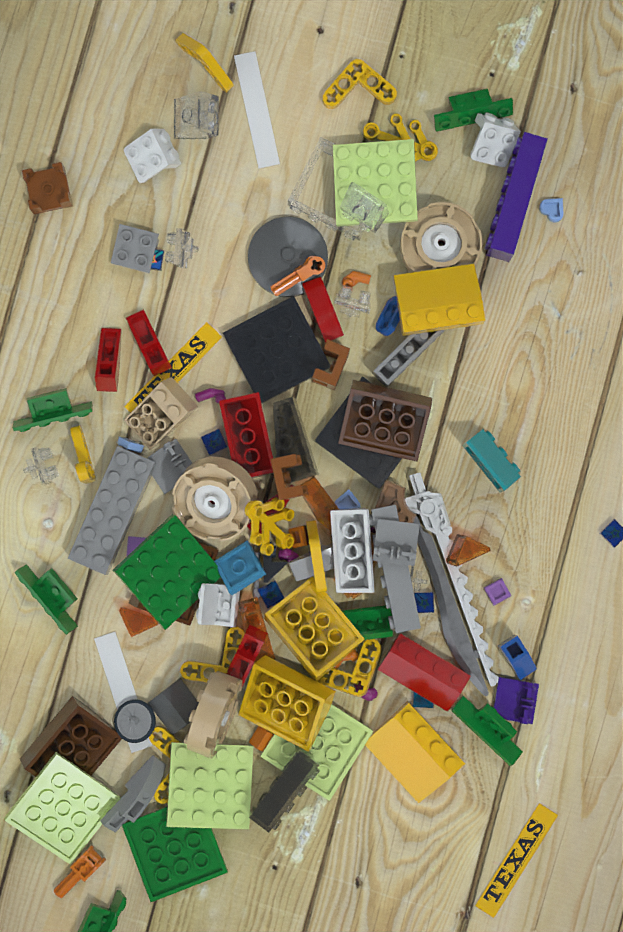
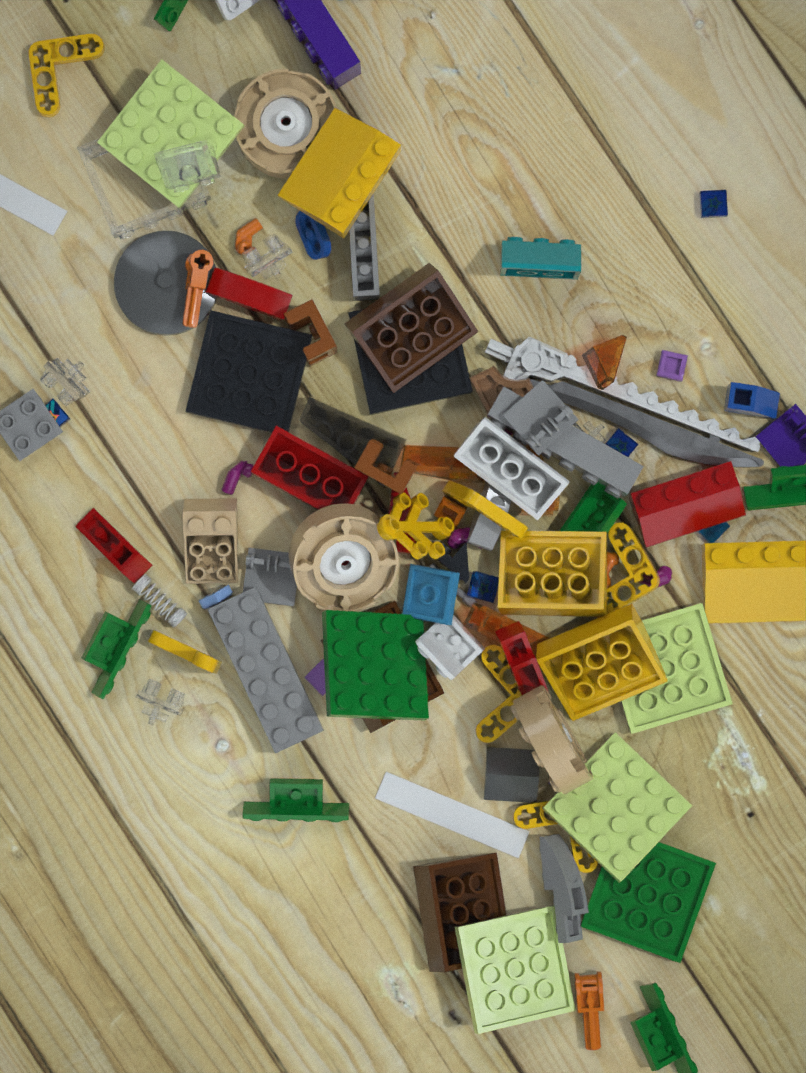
camera: 50 degrees left, 0 degrees up
(97, 431) = (175, 618): none -> white piece
(134, 721) = (490, 827): light grey wheel -> none
(136, 622) = (396, 741): clear orange slope -> none
(148, 342) = (131, 492): red slope -> none
(181, 362) = (178, 480): yellow sticker -> none
(214, 442) = (285, 513): clear blue tile -> none
(261, 738) = (614, 718): orange slope -> none
(284, 790) = (685, 737): clear smoke wedge -> none
(347, 501) = (457, 433): light blue tile -> none
(419, 147) = (148, 66): yellow plant -> none

